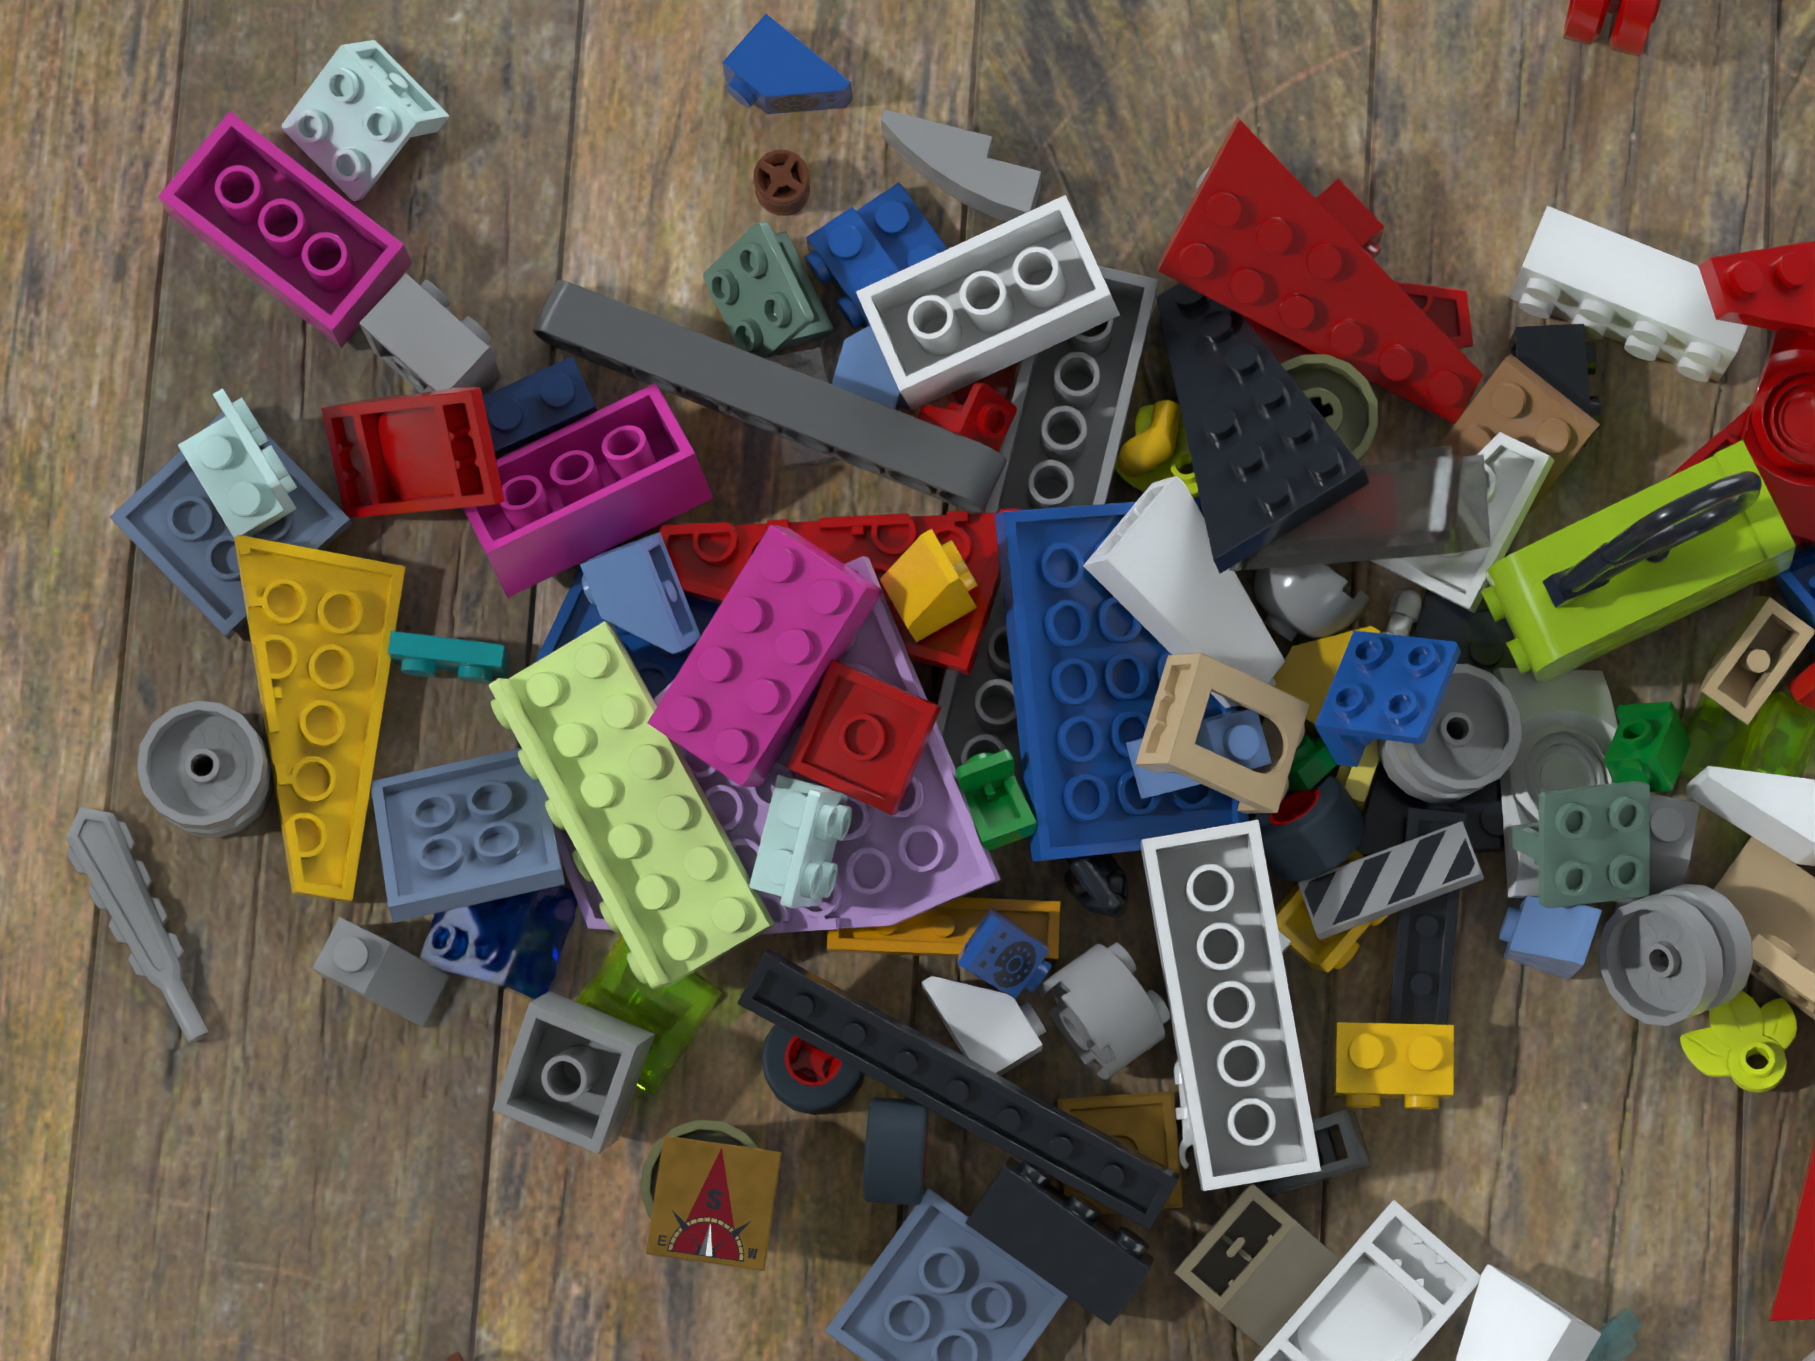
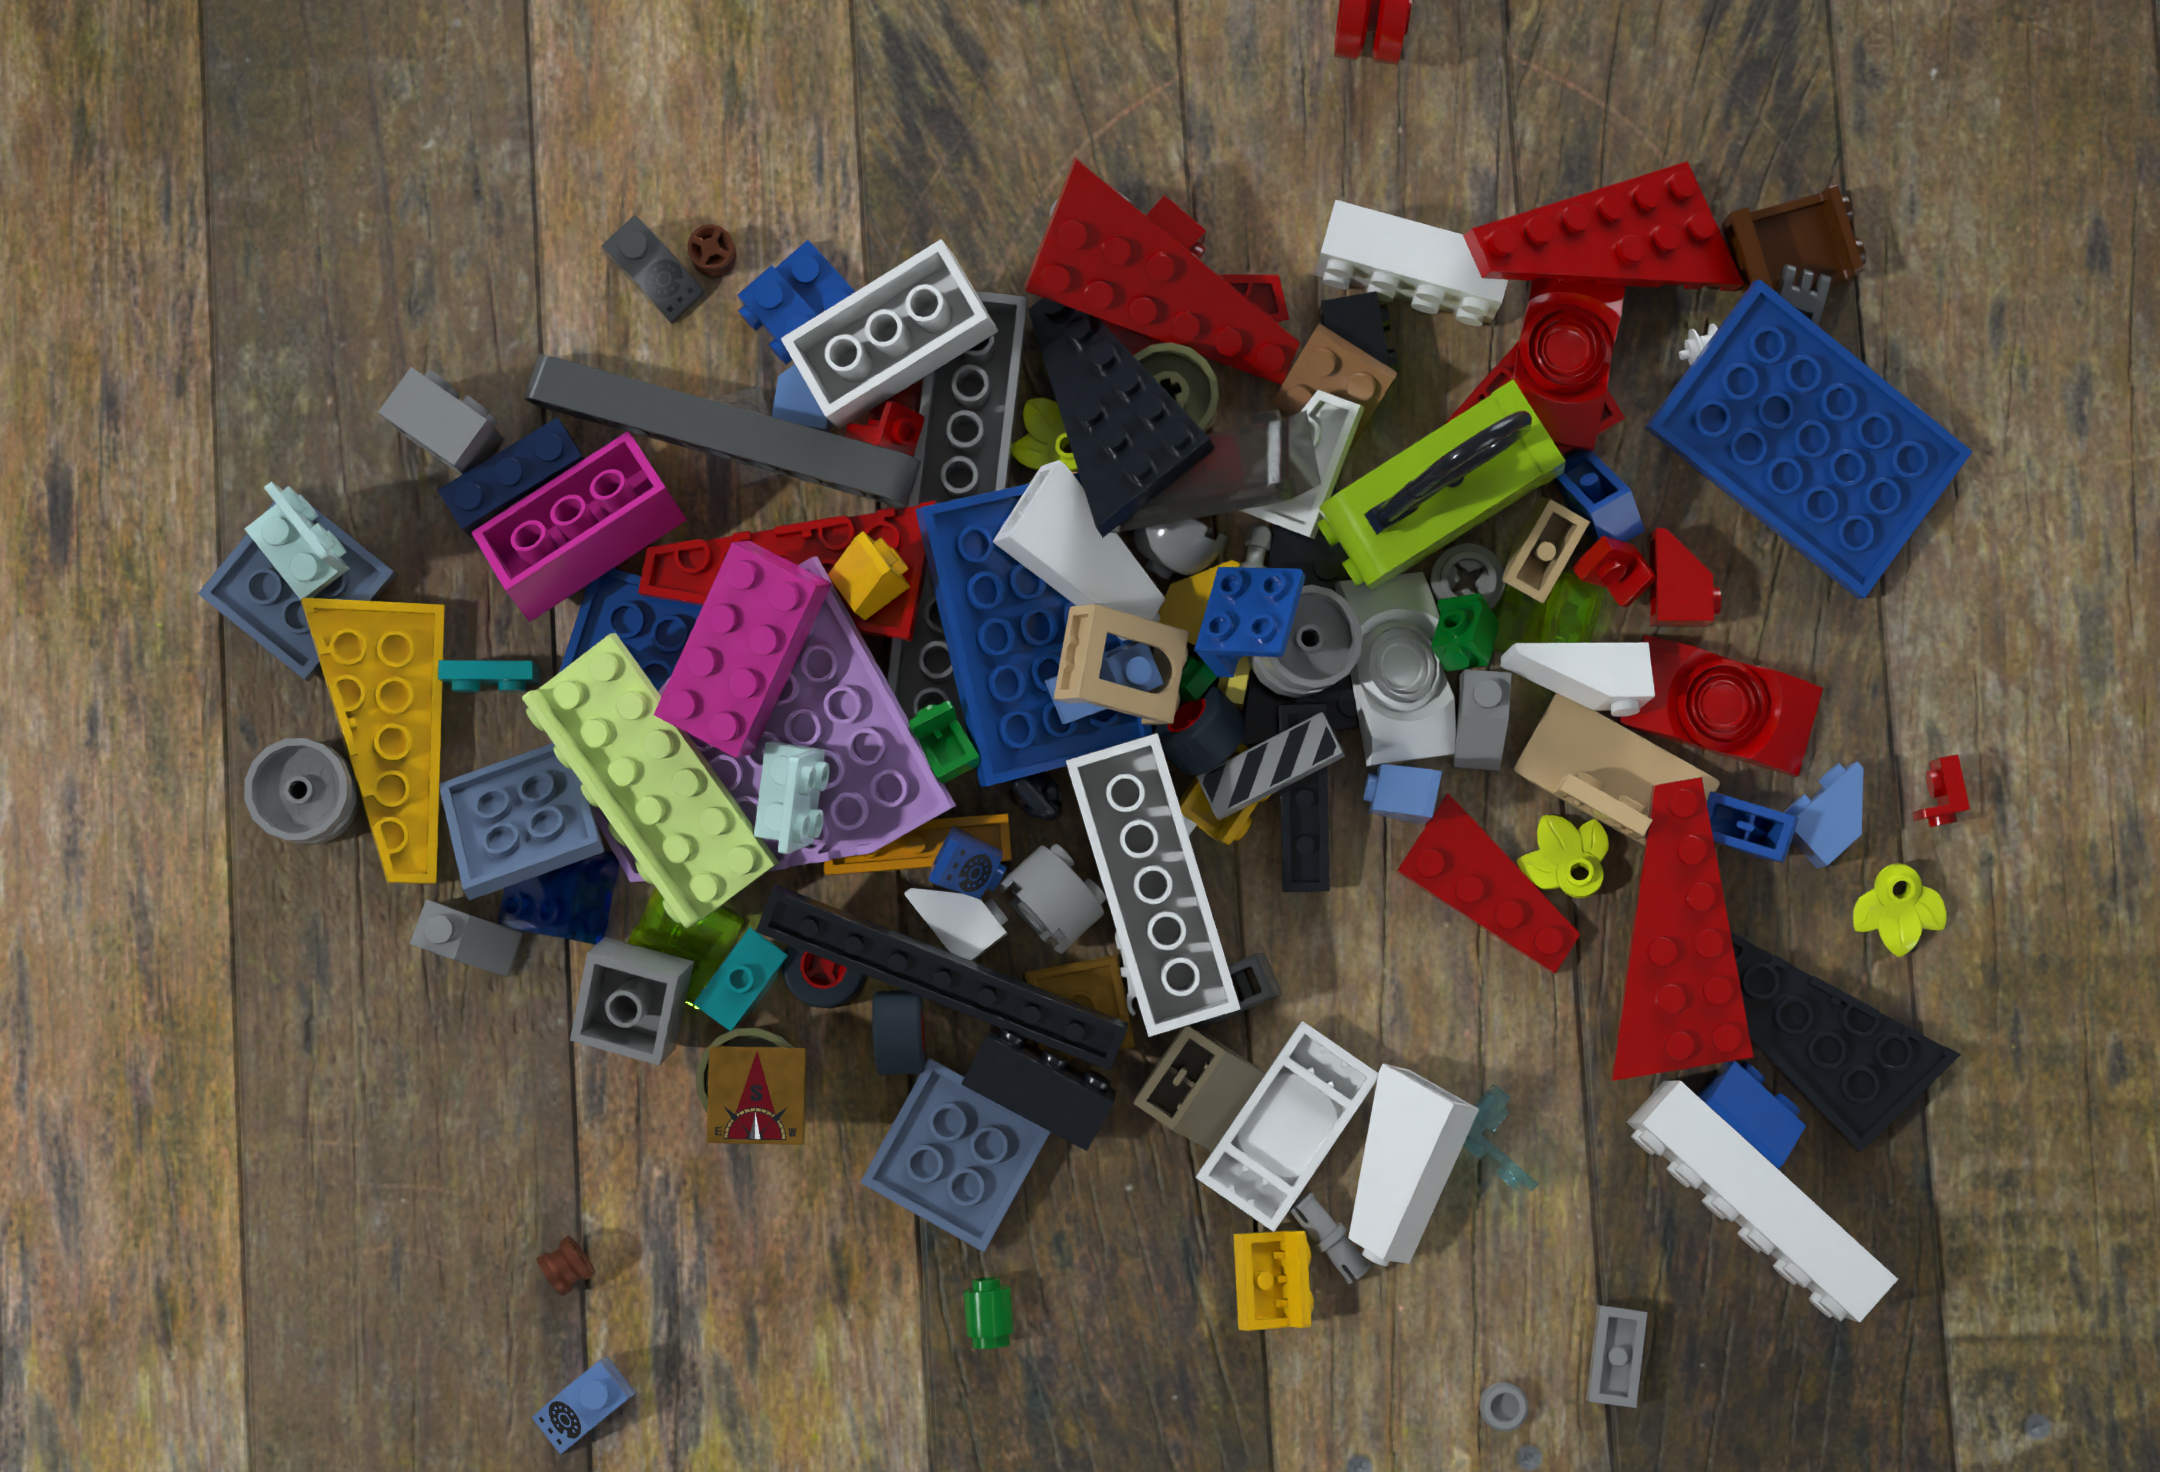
camera: 10 degrees left, 5 degrees up
(121, 884) = (248, 892): light grey sword -> none
(285, 229) = (309, 338): dark pink brick -> none
(361, 116) = (361, 236): light aqua bracket -> none
(413, 453) = (436, 513): red slope -> none
(641, 593) = (637, 606): medium blue slope -> none
(704, 191) = (652, 269): none -> dark grey slope
(711, 1063) = (741, 980): none -> teal brick
(766, 294) = (711, 345): sand green bracket -> none
(782, 73) = (701, 160): blue slope -> none
(864, 737) = (830, 705): red plate -> none
(962, 165) = (859, 220): light grey slope -> none
(1154, 444) = (1040, 432): yellow arm -> none
(1393, 1063) = (1290, 910): yellow bracket -> none
(1590, 843) = (1426, 718): sand green bracket -> none
(1641, 1072) = (1478, 880): none -> red wing
(1662, 662) = (1469, 559): none -> light grey gear
(1675, 954) = (1505, 797): light grey wheel -> none

